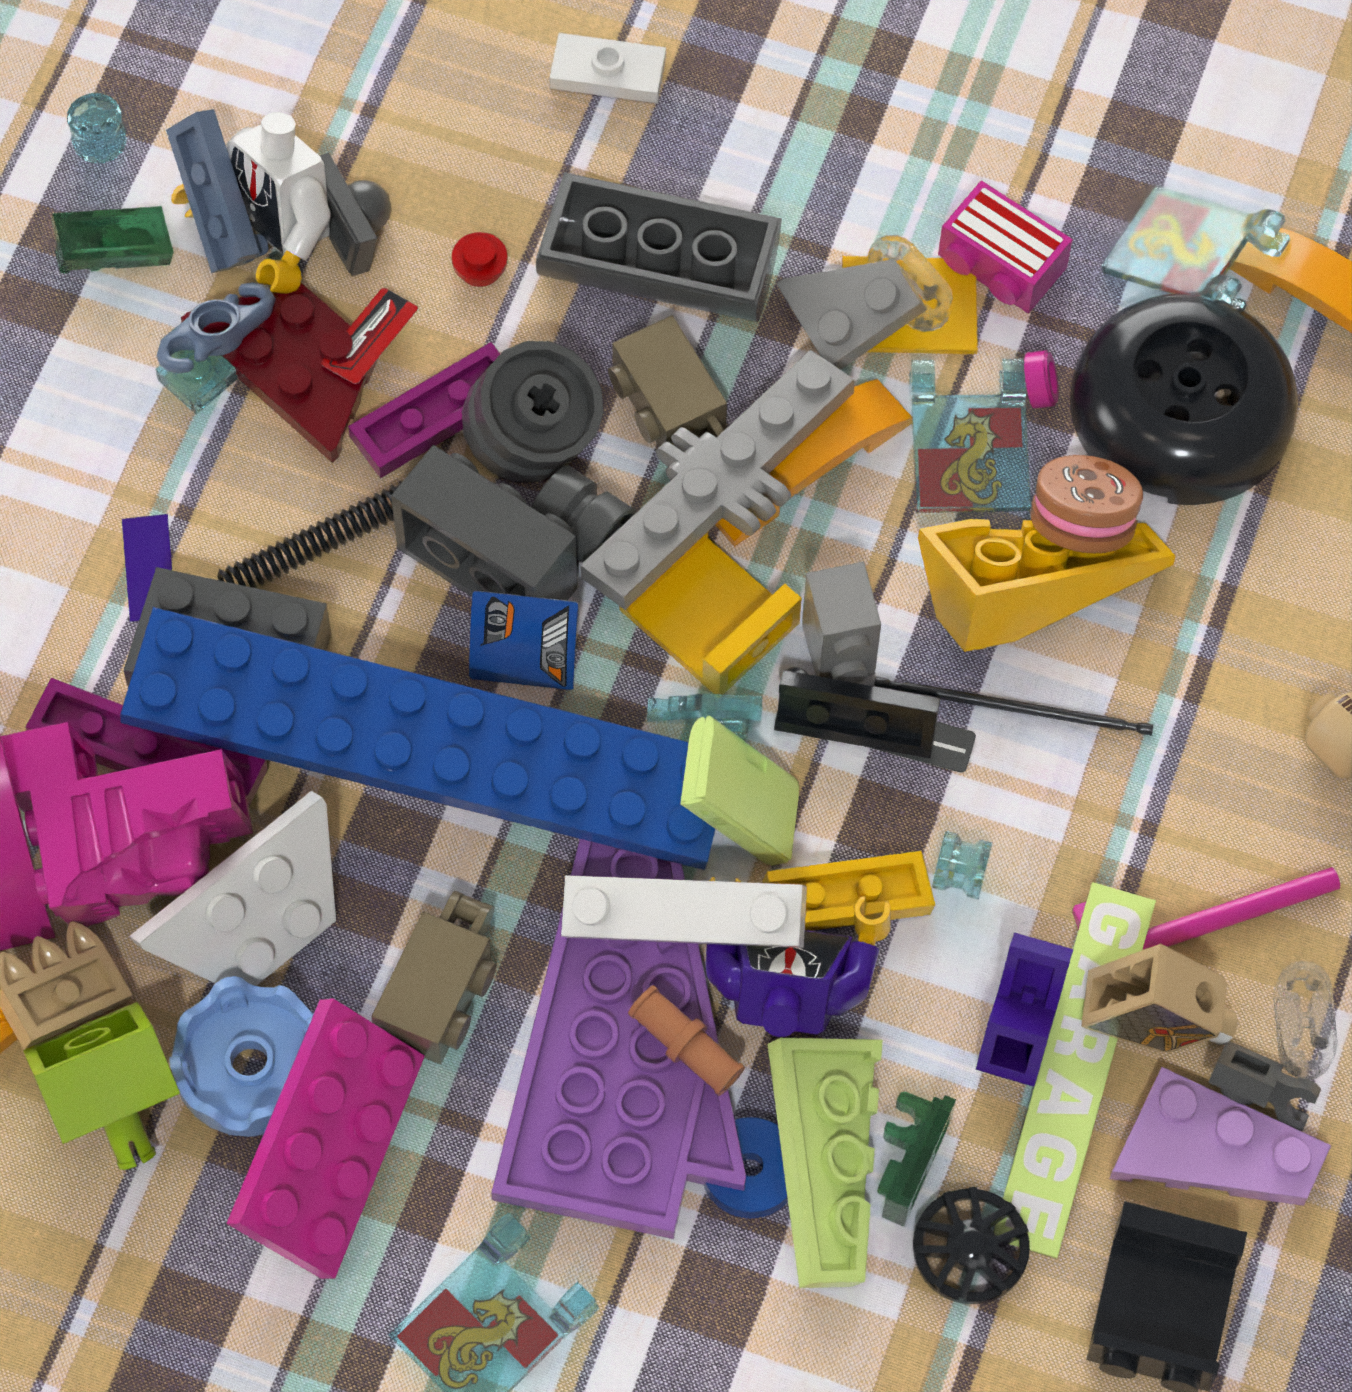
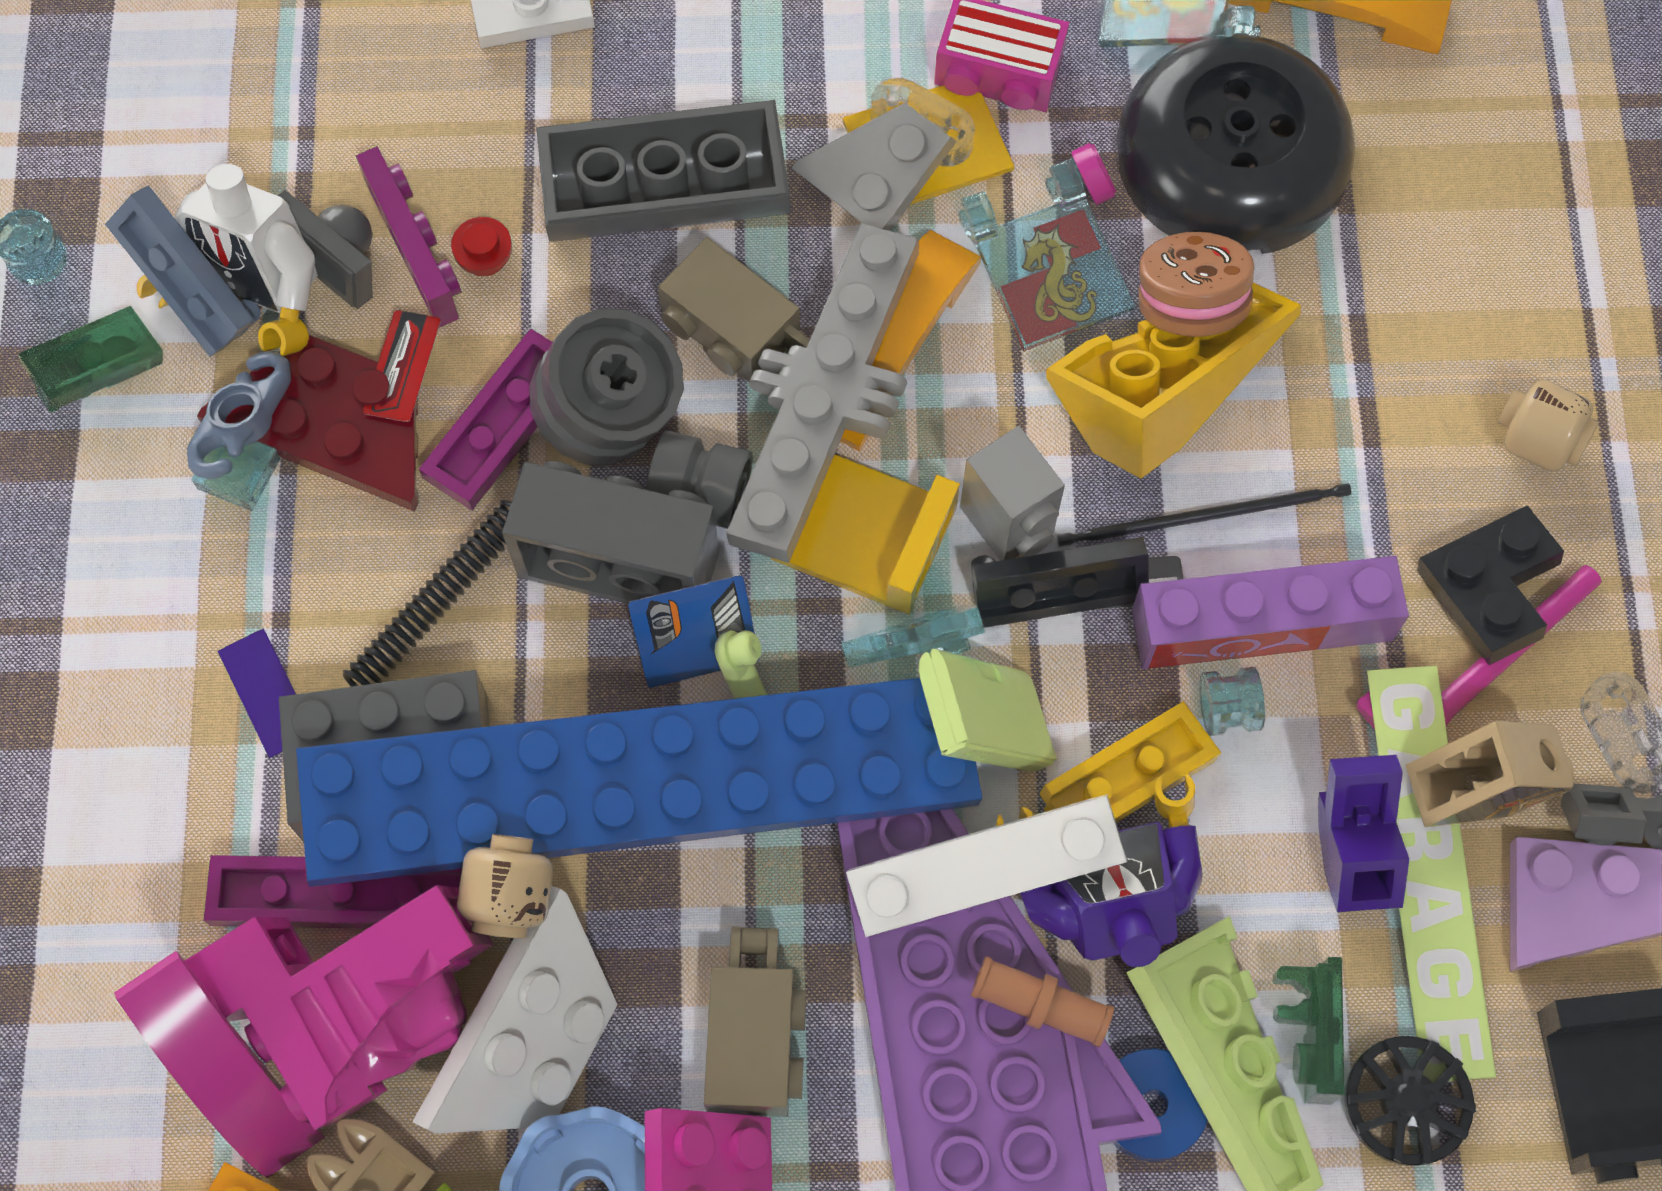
camera: 20 degrees left, 5 degrees up
(277, 777) = (505, 887): none -> tan head
(422, 228) = (411, 235): none -> magenta plate
(548, 673) = (736, 658): none -> yellowish green arm
(1026, 802) = (1269, 612): none -> medium lavender brick
(1232, 839) = (1480, 579): none -> black plate

